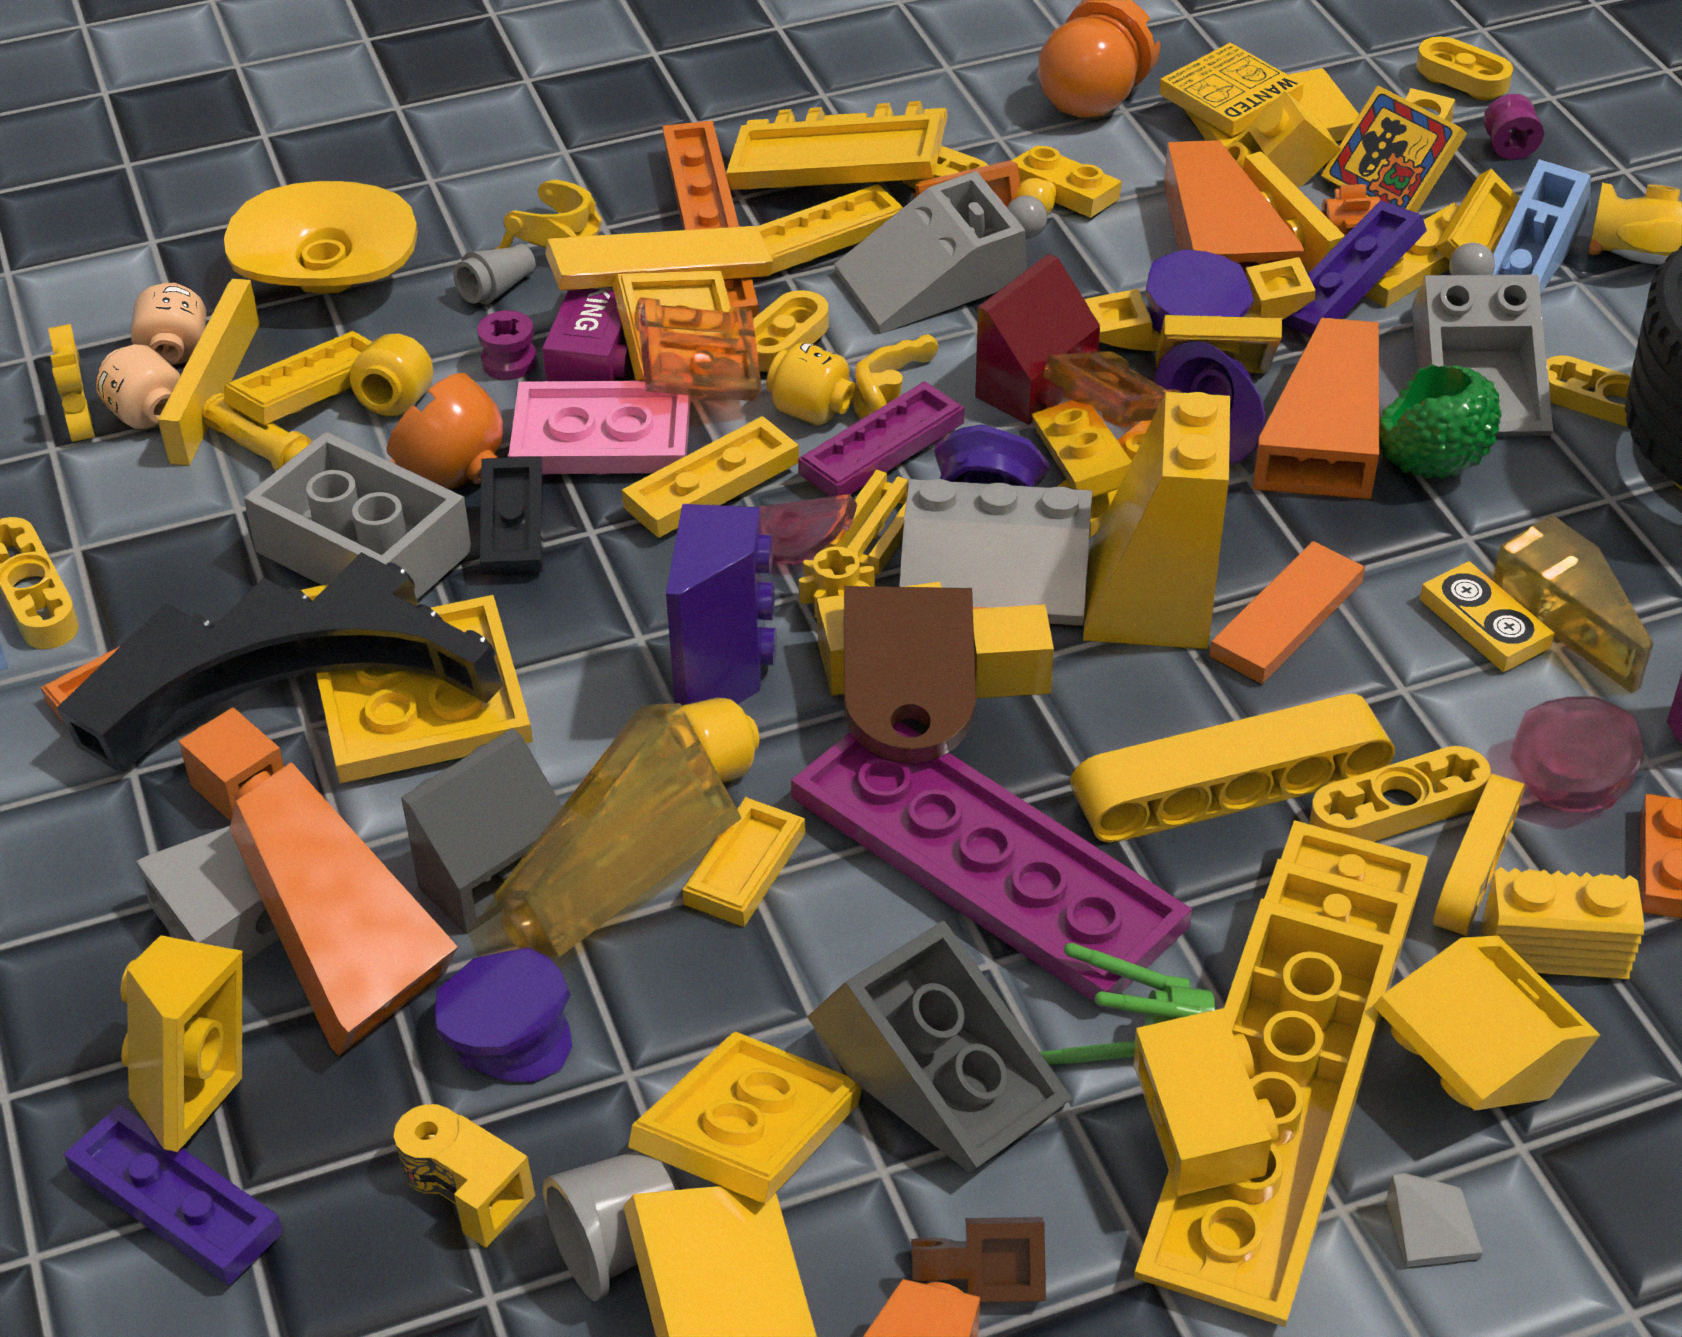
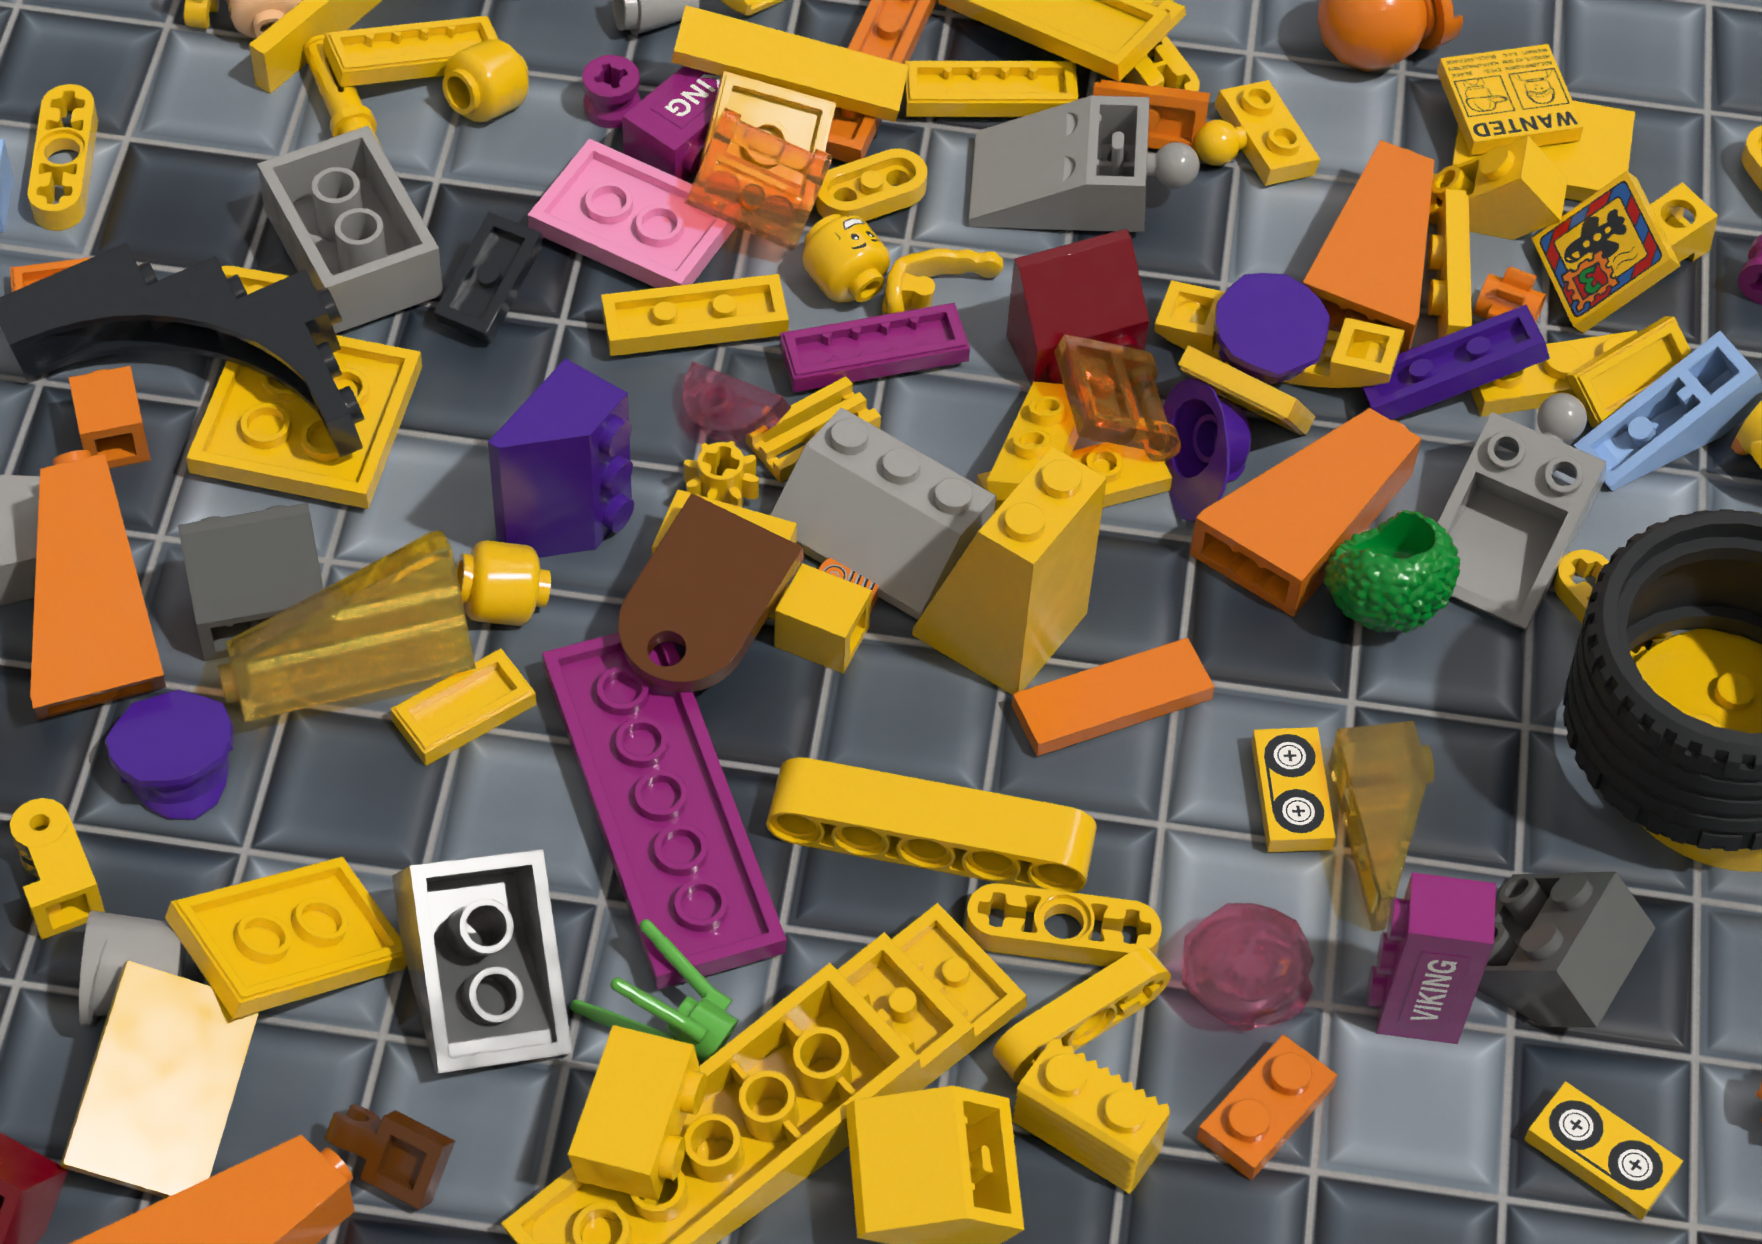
camera: 25 degrees right, 10 degrees up
(449, 433) = (488, 172): orange cylinder -> none
(989, 457) = (928, 425): dark purple hat -> none

